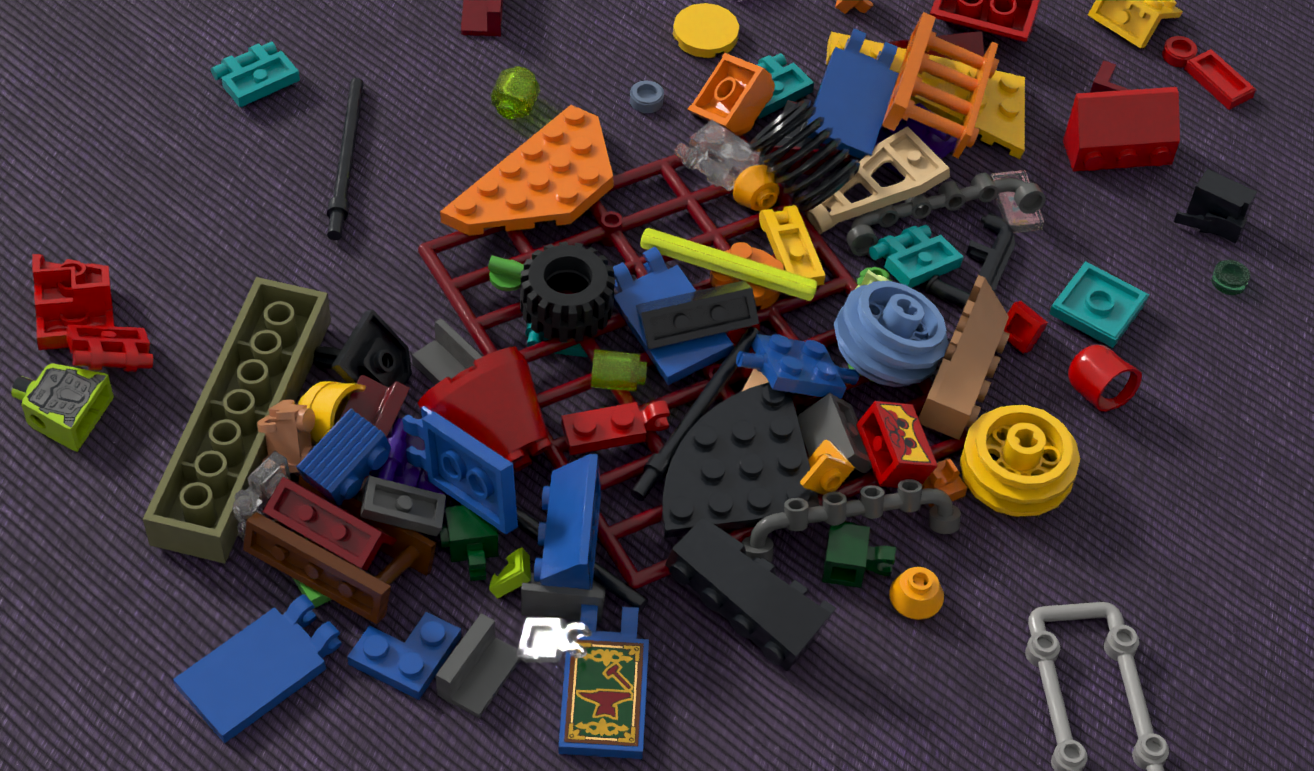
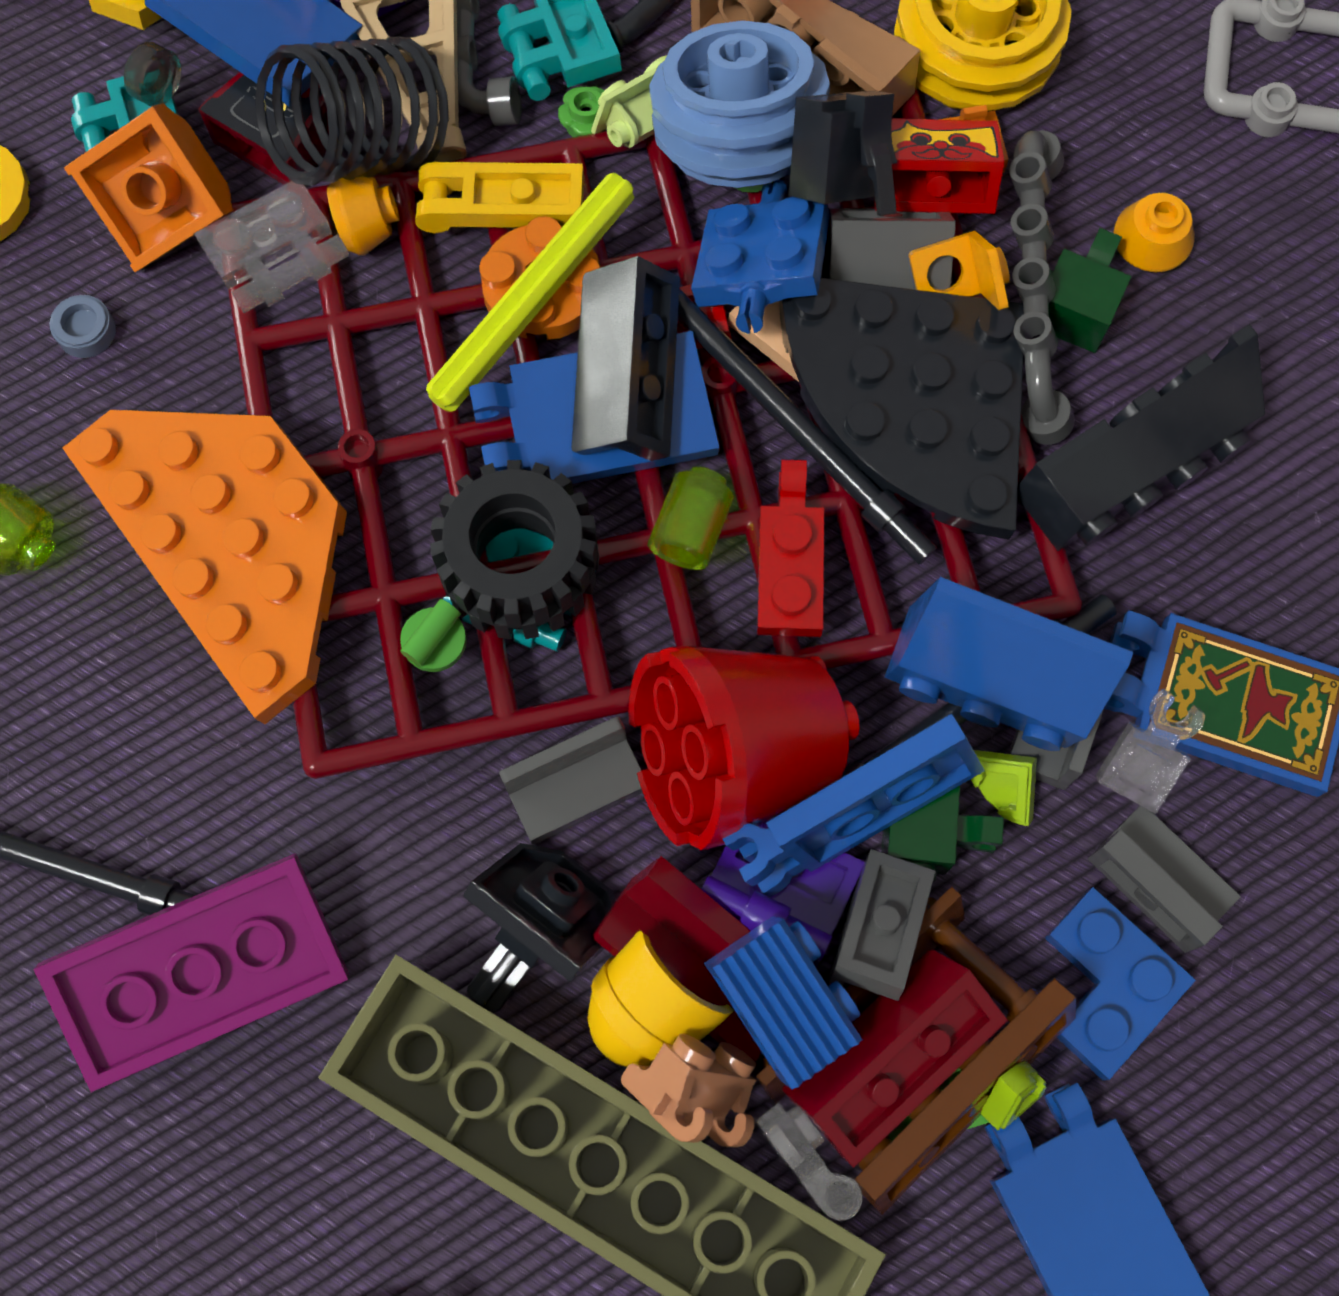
camera: 70 degrees left, 20 degrees up
(302, 227) = (192, 972): none -> magenta plate
(325, 593) = (1013, 1095): none -> lime tile
(799, 75) = (152, 74): none -> clear smoke tile
(869, 377) = (844, 149): none -> black piece

